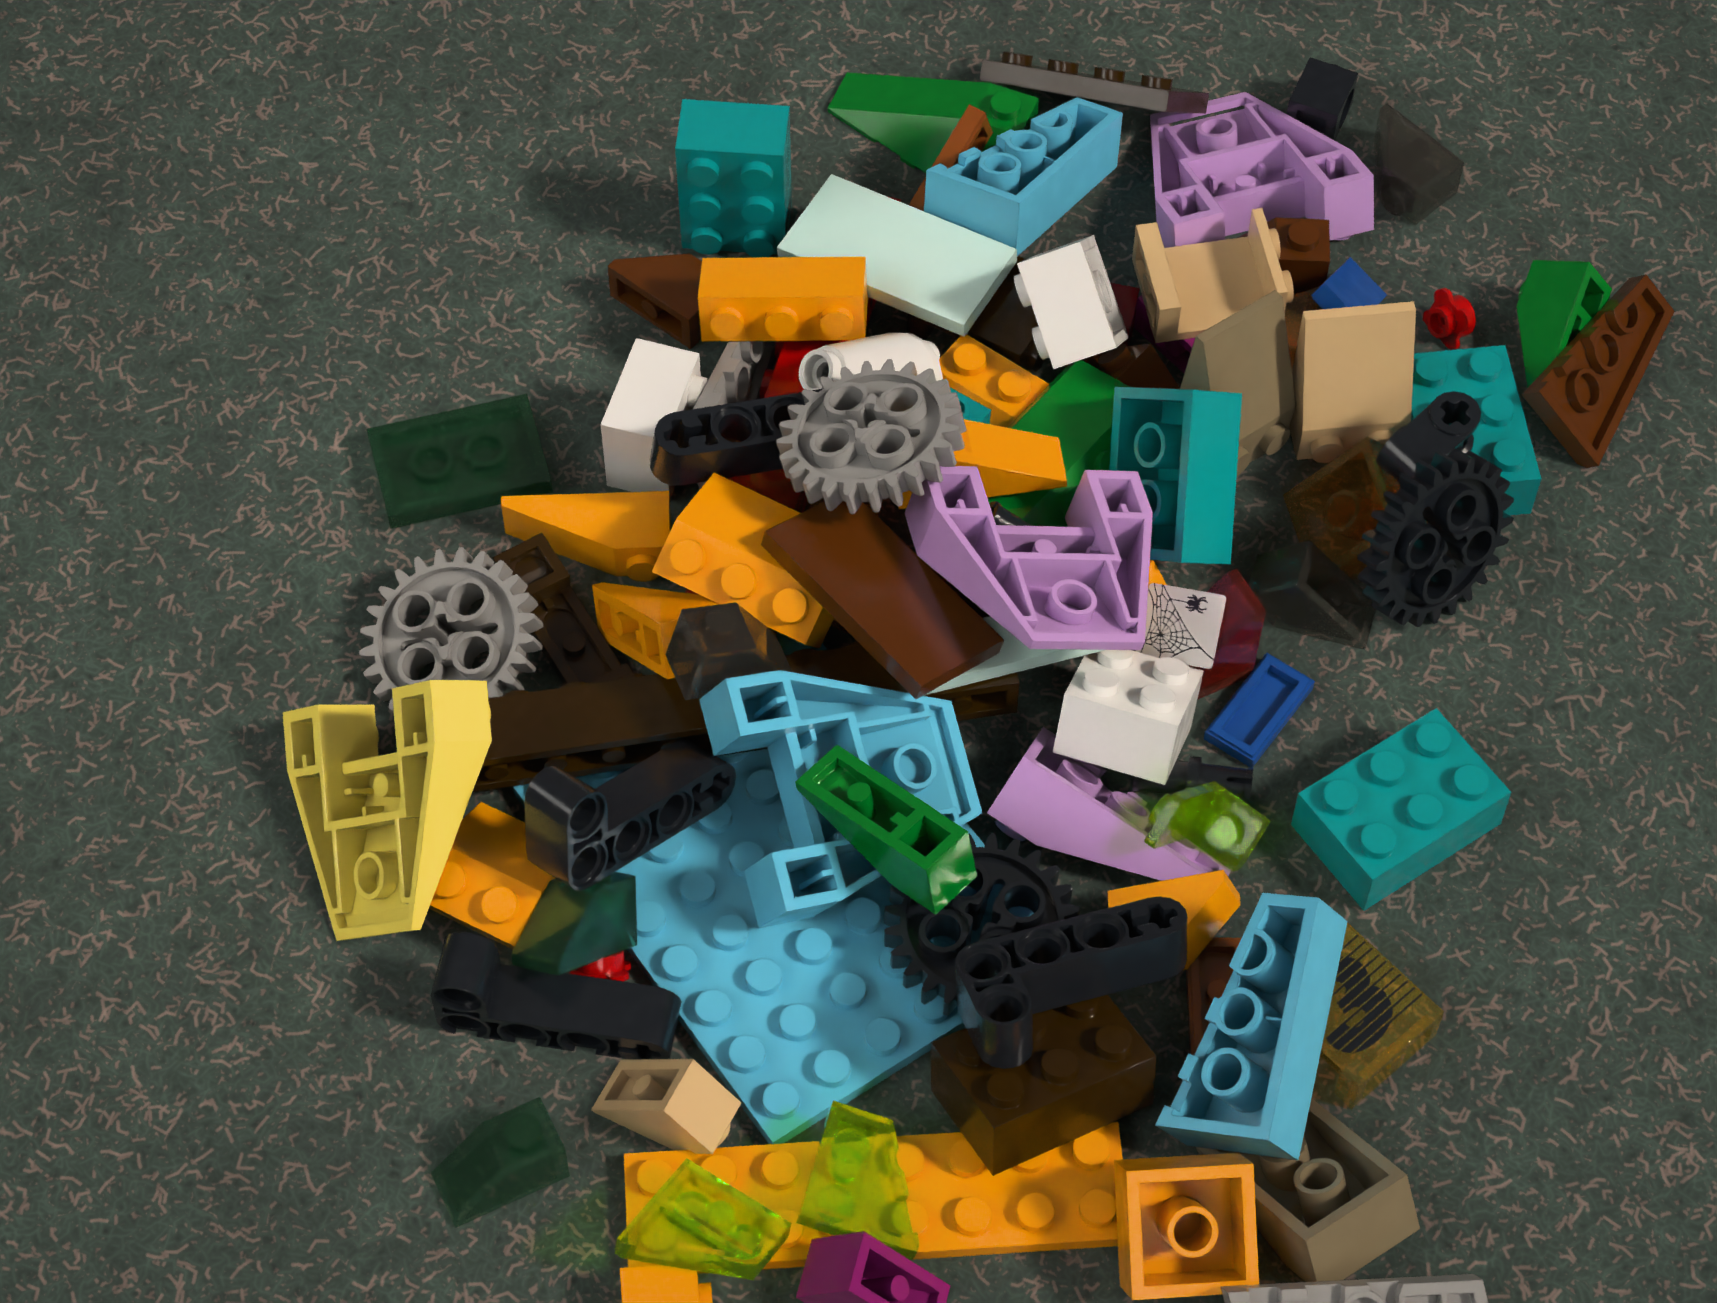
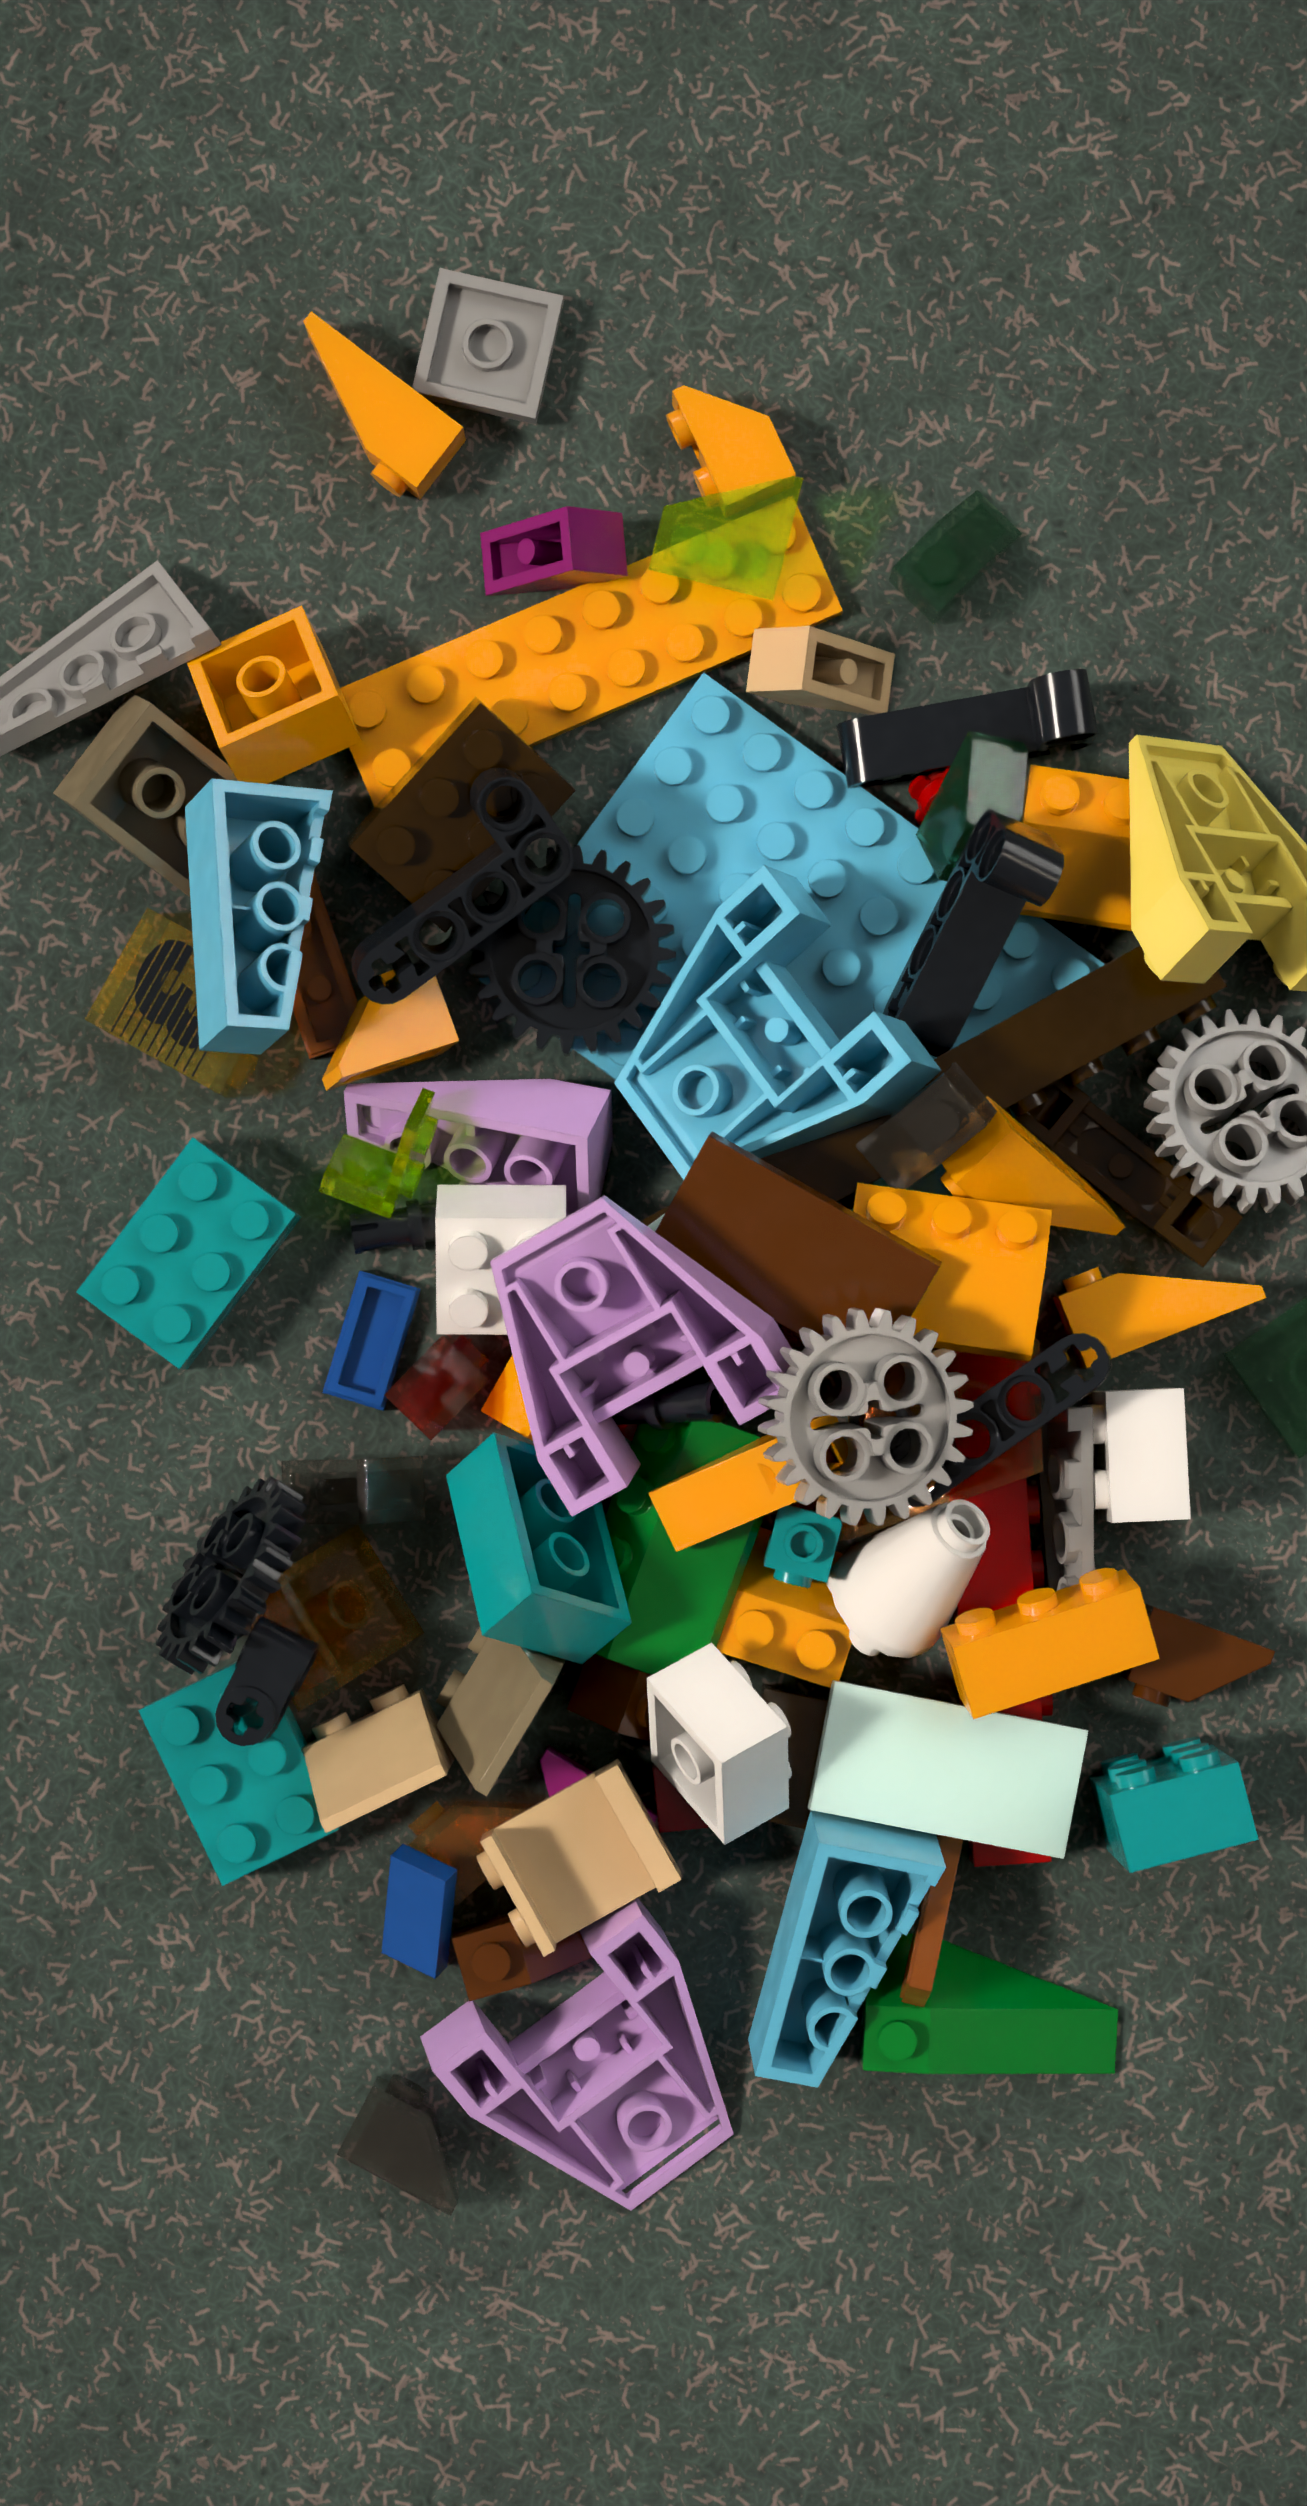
camera: 160 degrees right, 30 degrees up
(859, 1181) = (600, 637): clear neon green wing -> none
(891, 828) = (696, 988): green slope -> none
(1105, 84) = (787, 2125): dark brown wing -> none
(1183, 624) = (473, 1374): white sticker -> none
(1323, 97) = (532, 2213): black brick -> none
(1450, 318) = (299, 1934): red plate -> none
(1555, 307) = (173, 1951): green slope -> none
(1600, 369) = (111, 1902): reddish brown wing -> none

